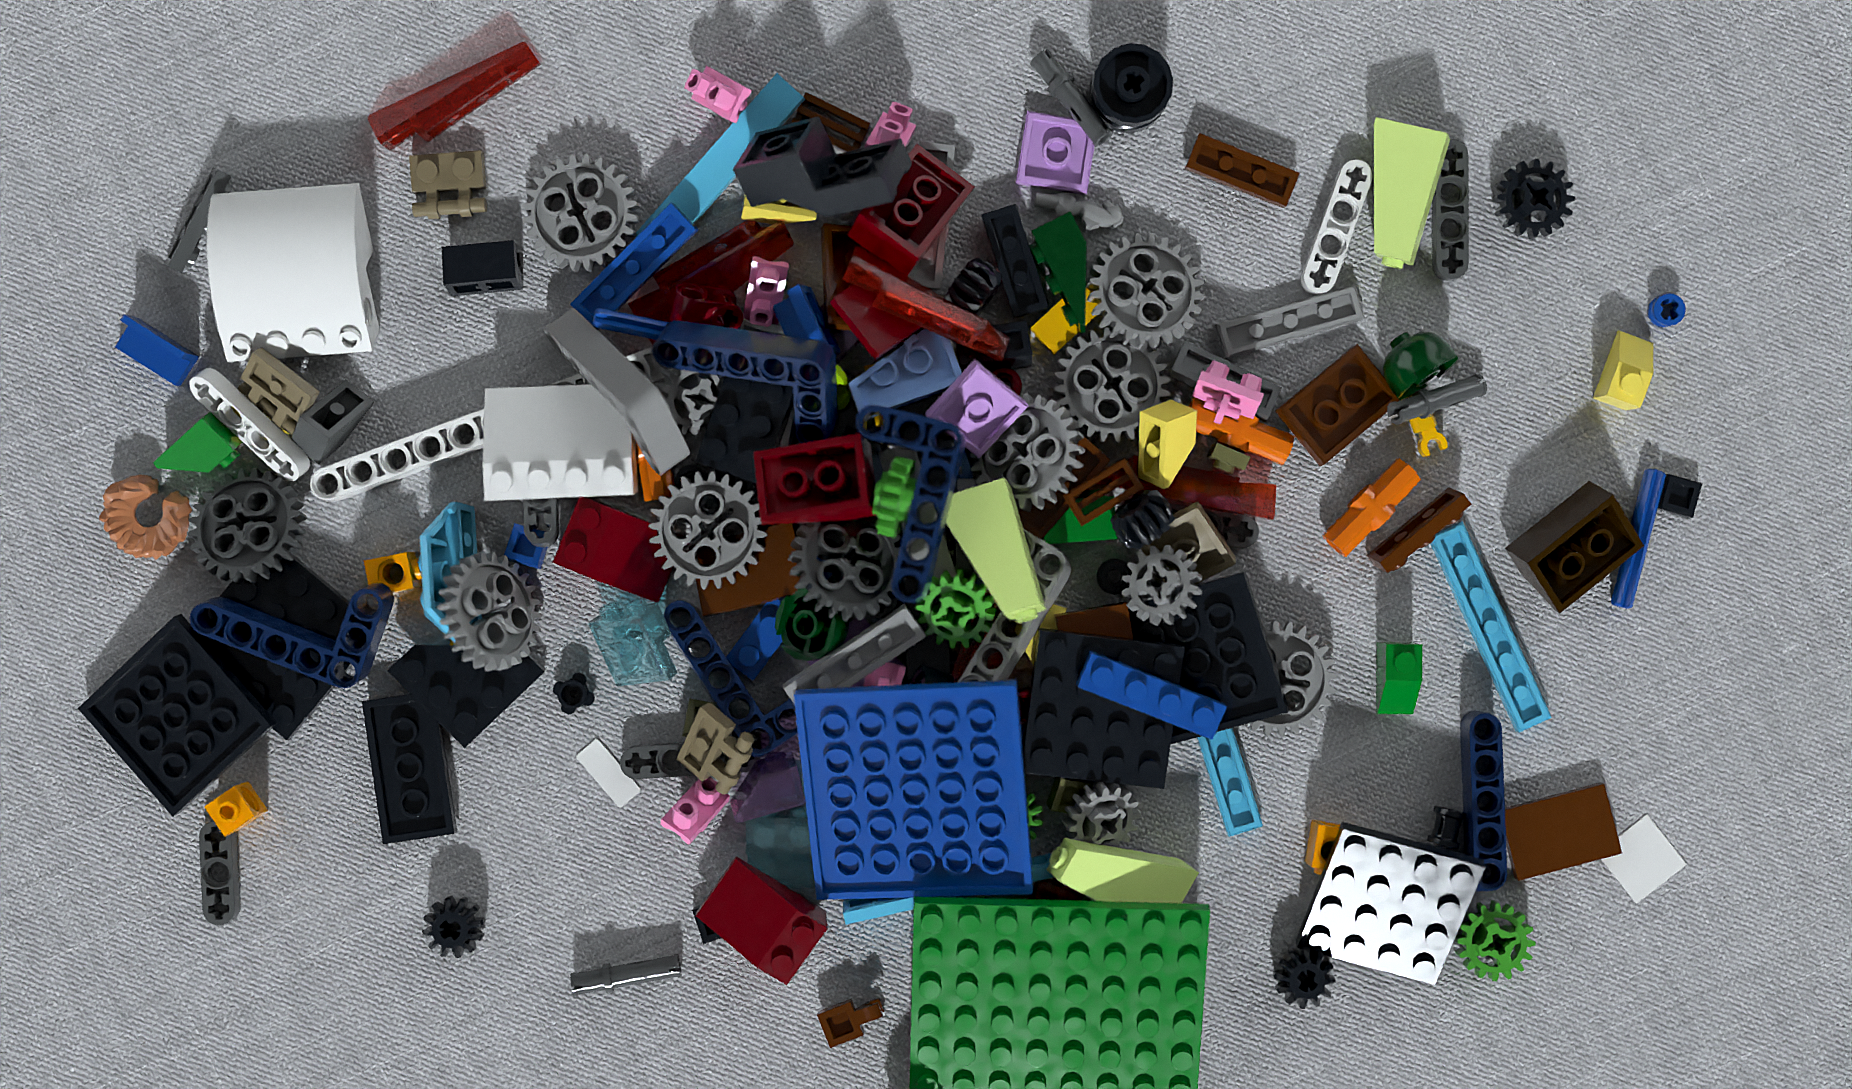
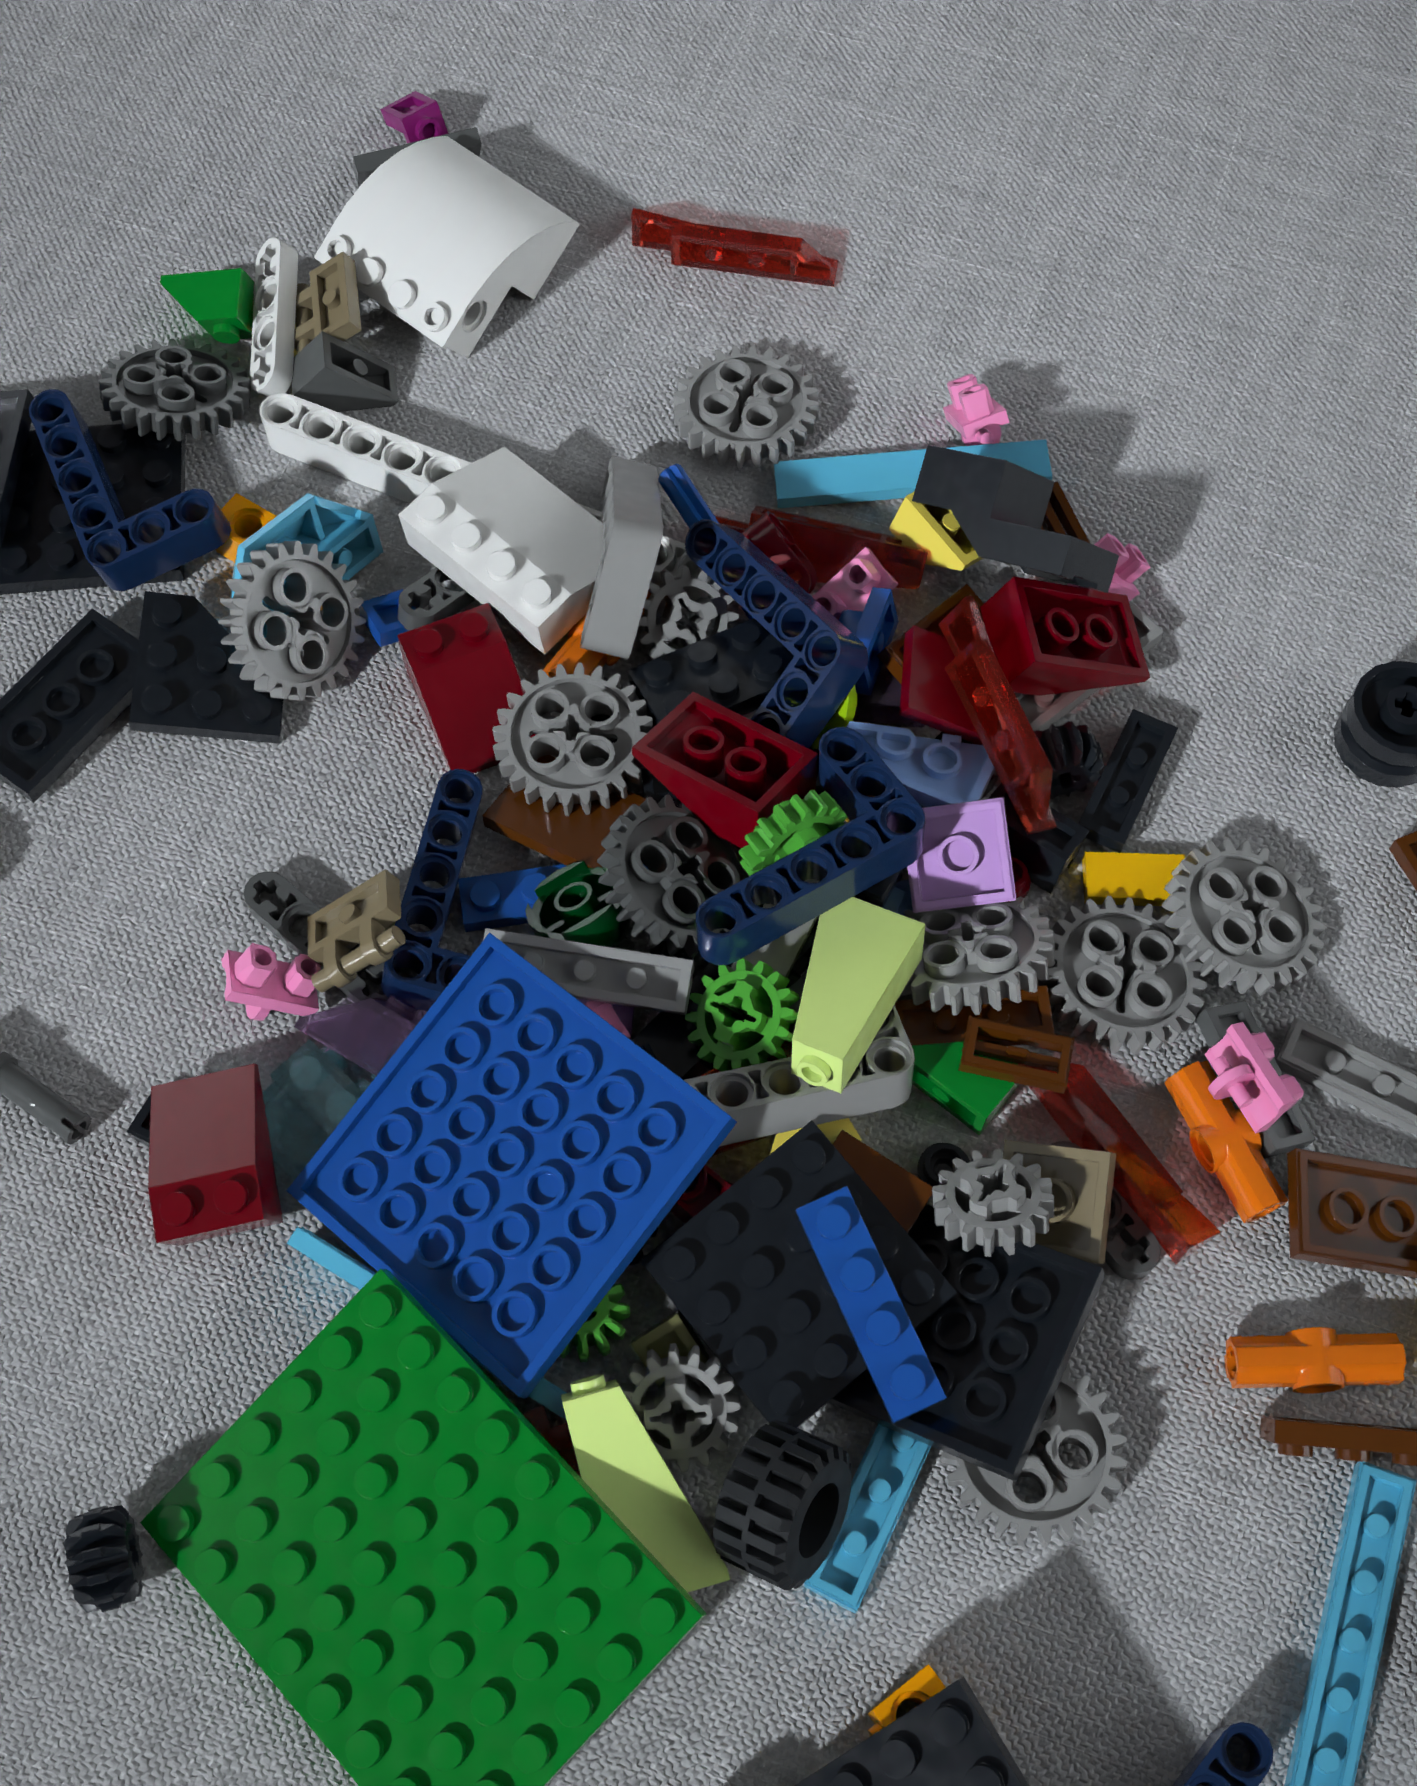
camera: 45 degrees right, 25 degrees down
(121, 521) = (84, 297): nougat piece -> none
(156, 350) = (267, 211): blue panel -> none
(164, 190) = (415, 117): none -> magenta bracket
(445, 173) = (660, 291): dark tan plate -> none
(481, 268) = (609, 377): black hinge -> none
(564, 689) = (282, 768): black plate -> none
(608, 773) = (231, 872): white sticker -> none
(633, 642) = (388, 772): clear light blue plate -> none
(636, 263) = (761, 477): blue plate -> none
(844, 1021) = (171, 1358): reddish brown plate -> none
(1054, 154) = (1262, 728): lavender tile -> none
(1062, 86) = (1323, 671): dark grey pin -> none
(1065, 257) = (1185, 819): dark green slope -> none
(1092, 214) = (1247, 804): light grey animal -> none
(1142, 519) = (1035, 1115): black gear -> none
(1165, 441) = (1133, 1065): light yellow slope -> none
(1194, 821) = (782, 1504): none -> black tyre
(1227, 458) = (1188, 1157): olive plate -> none
(1398, 676) = (1182, 1588): green slope -> none

